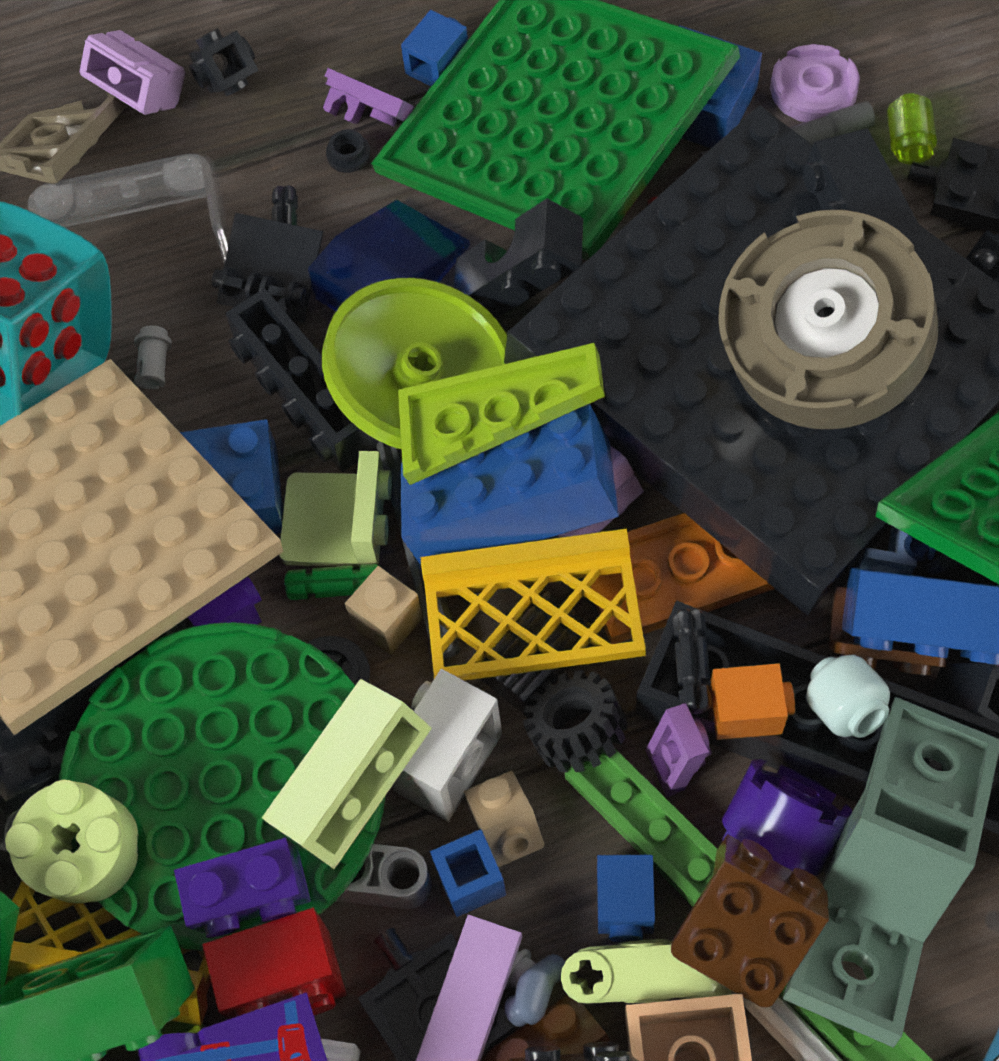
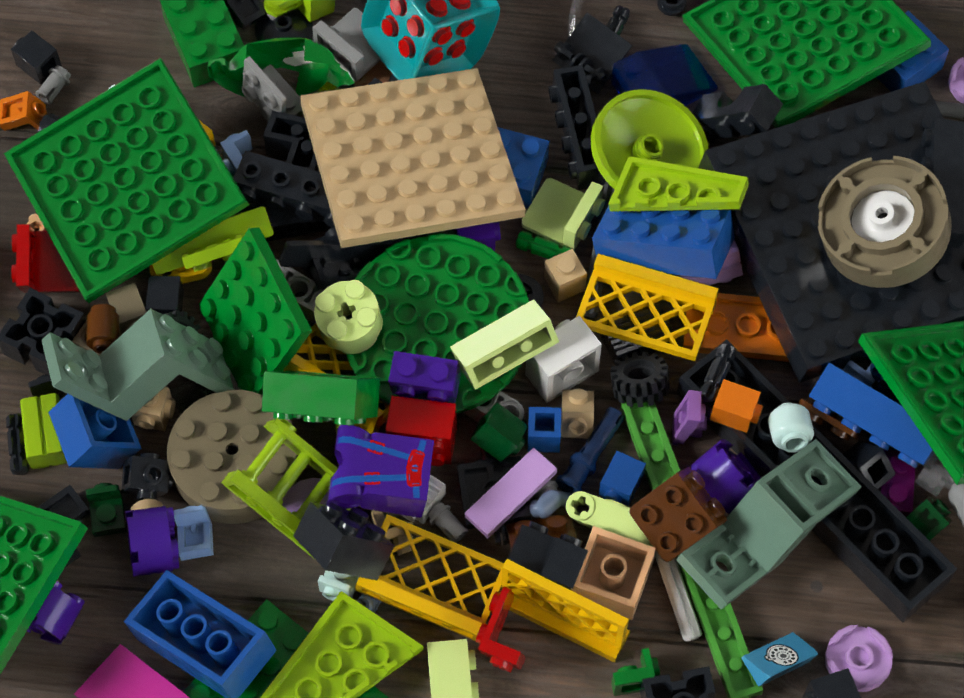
camera: 20 degrees right, 0 degrees up
(151, 359) = (503, 71): light grey pin -> none
(403, 917) = (499, 433): none -> dark green brick
(553, 894) = (584, 462): none -> dark blue pin

